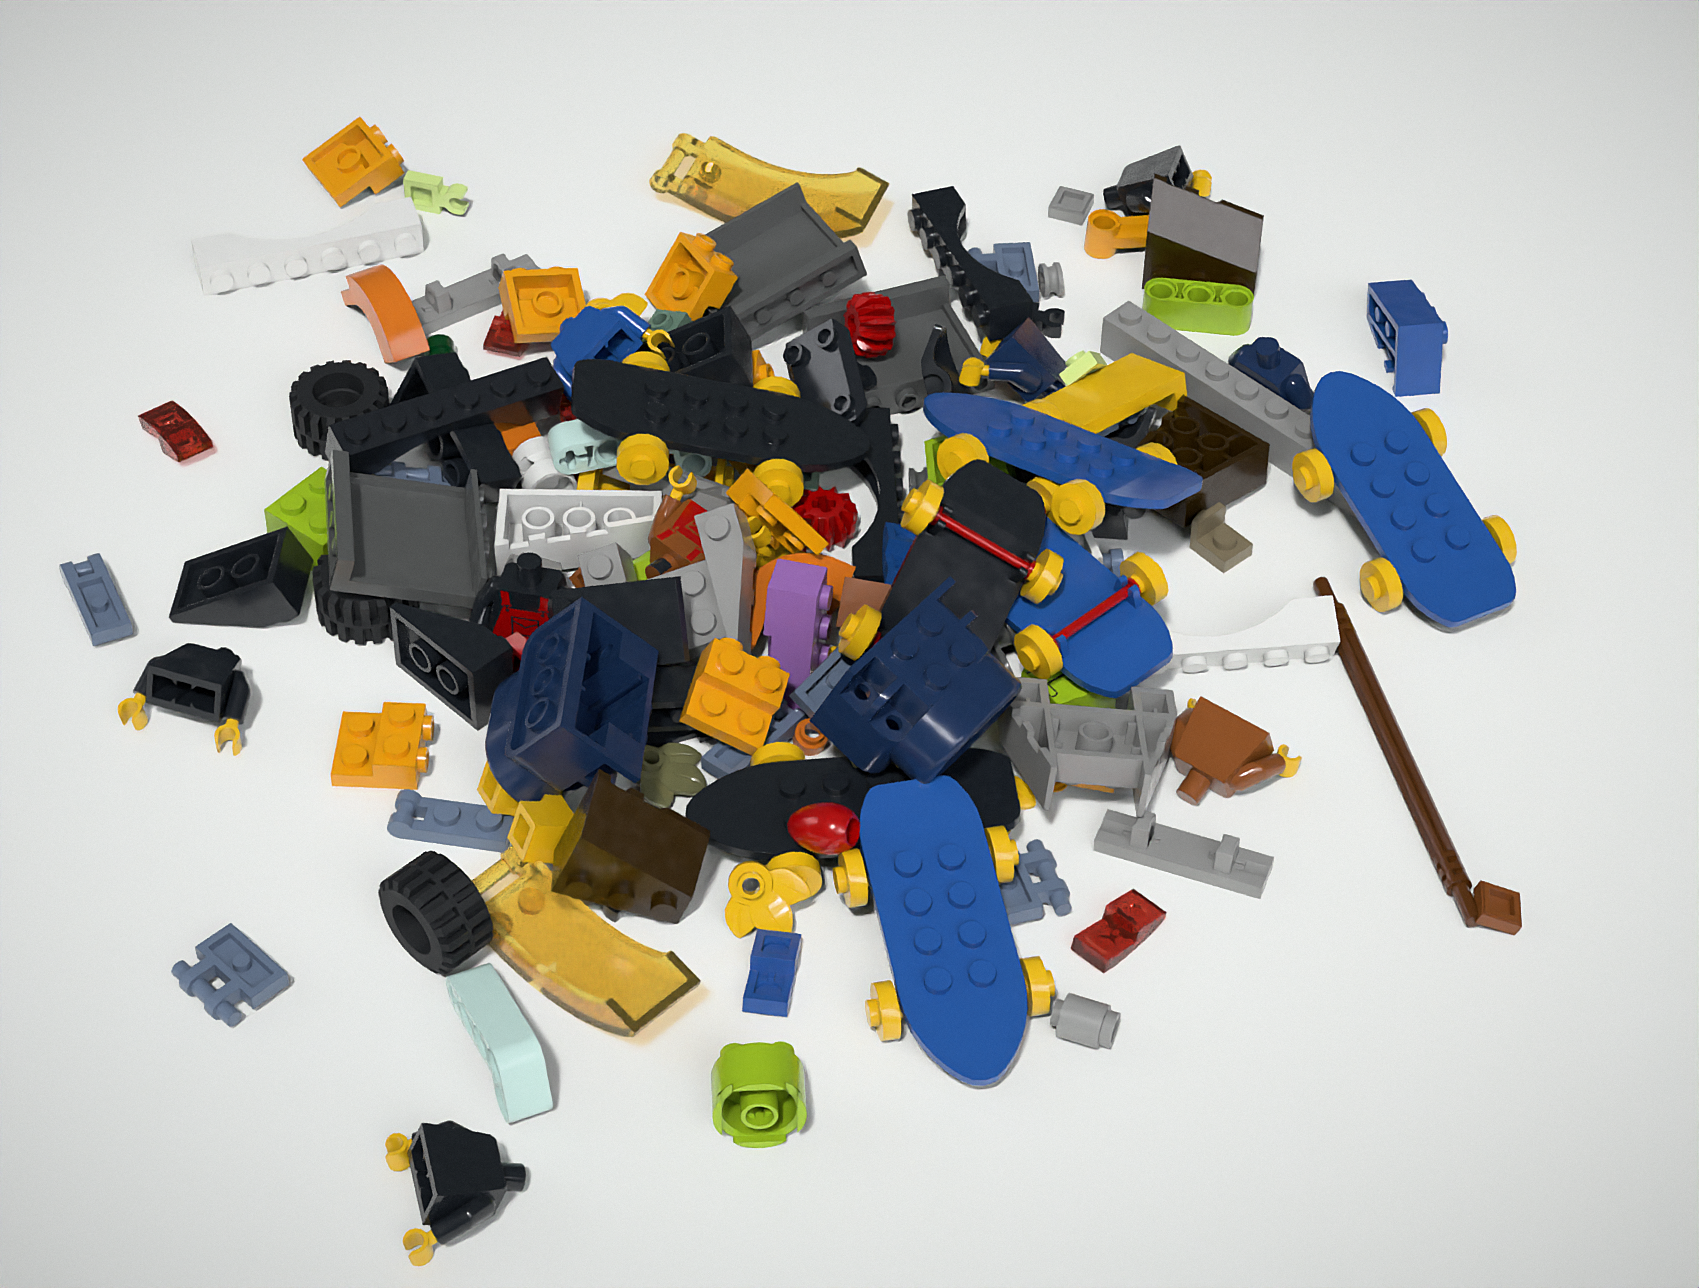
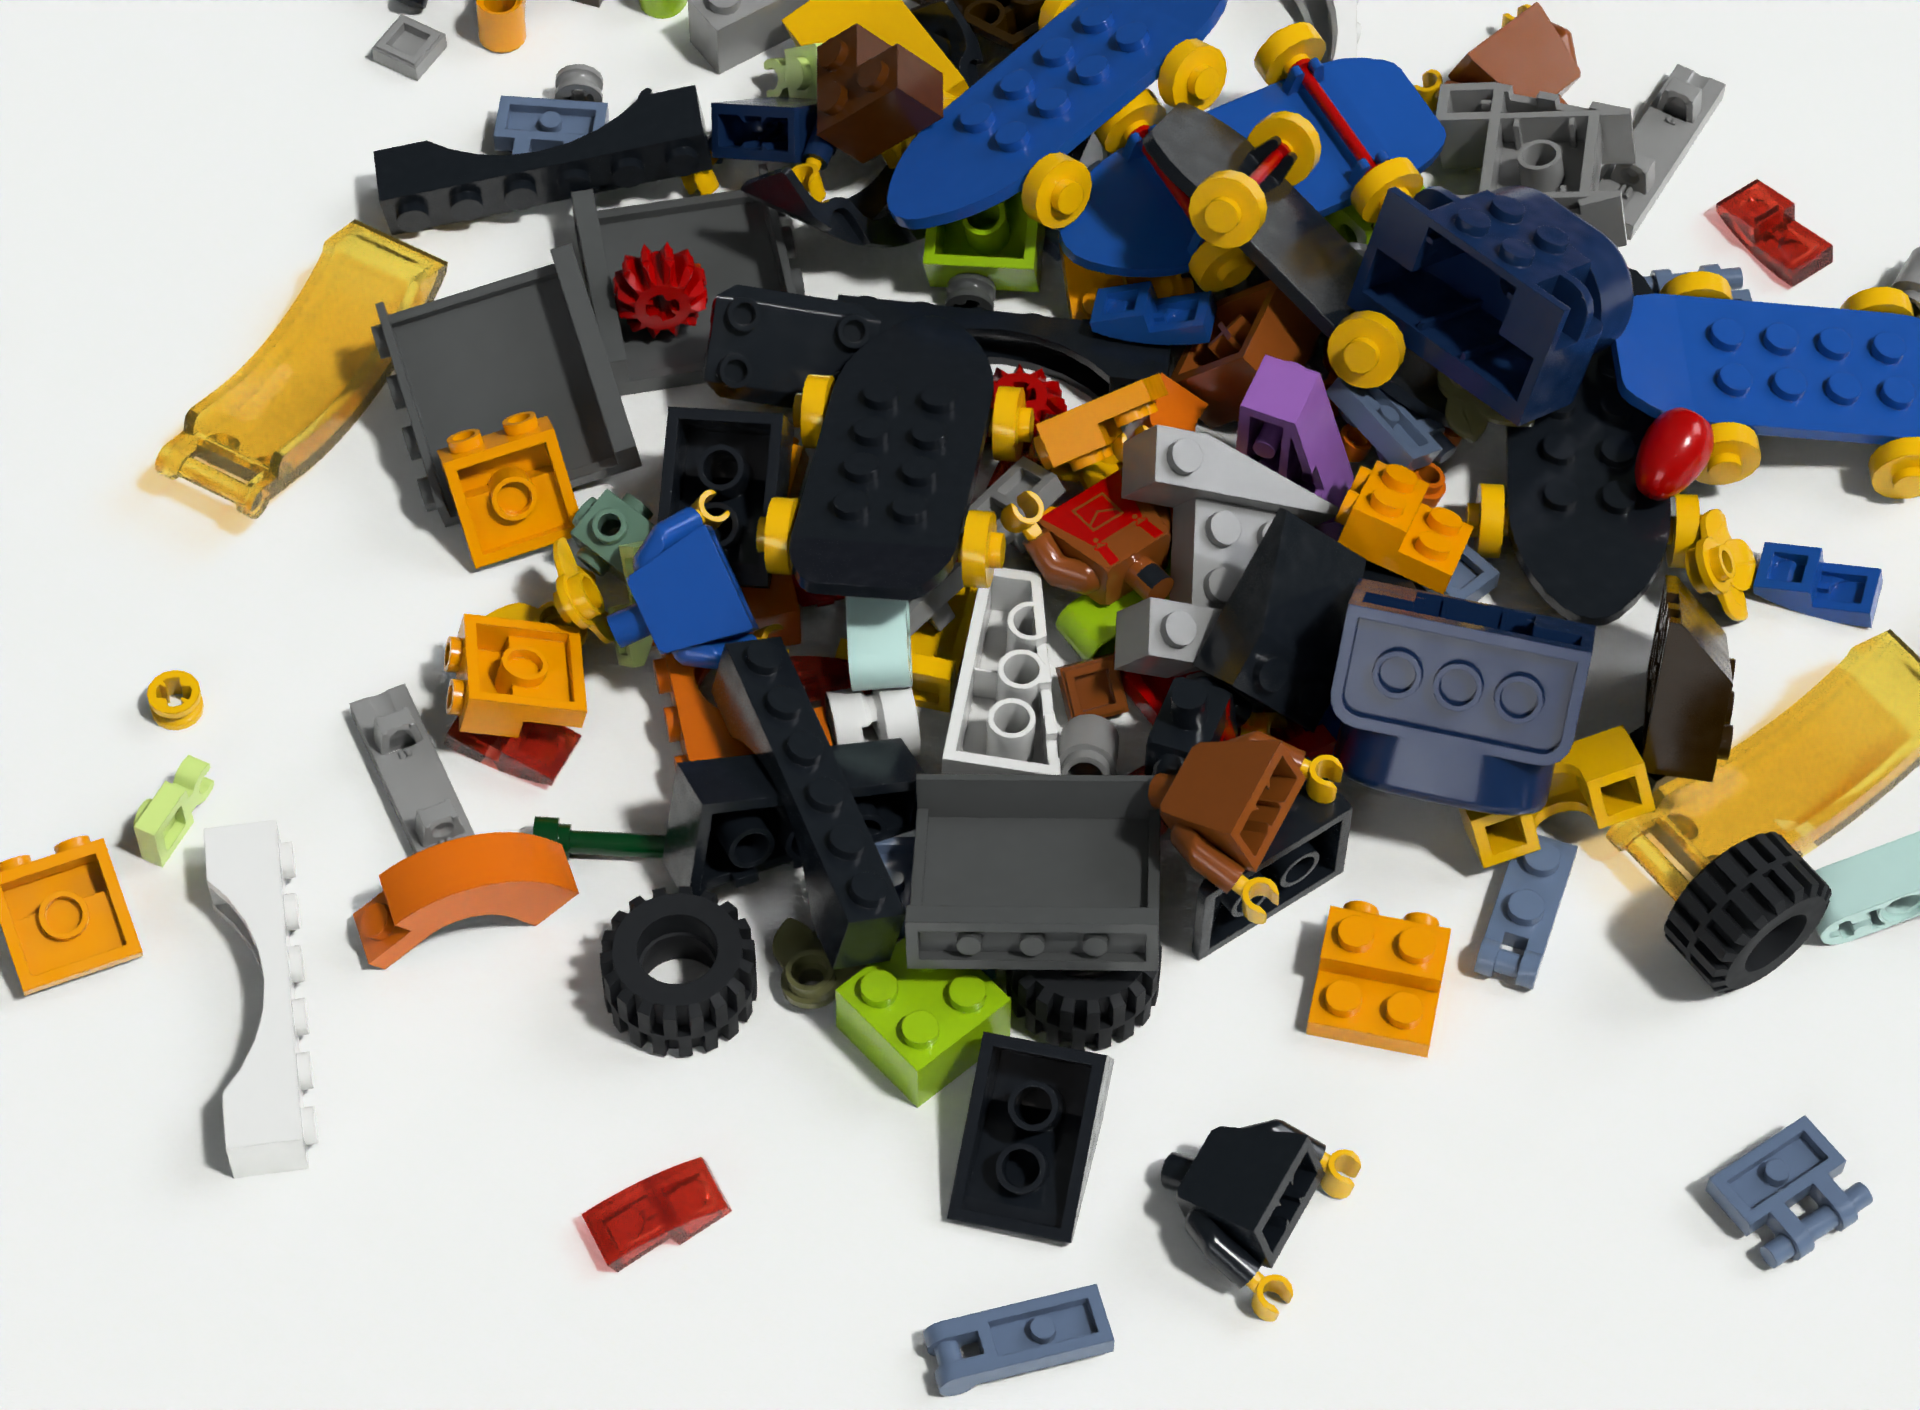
camera: 80 degrees left, 10 degrees up
(449, 597) = (1232, 803): none -> dark orange torso
(520, 187) = (179, 716): none -> yellow bush
(1043, 372) = (873, 93): none -> reddish brown brick

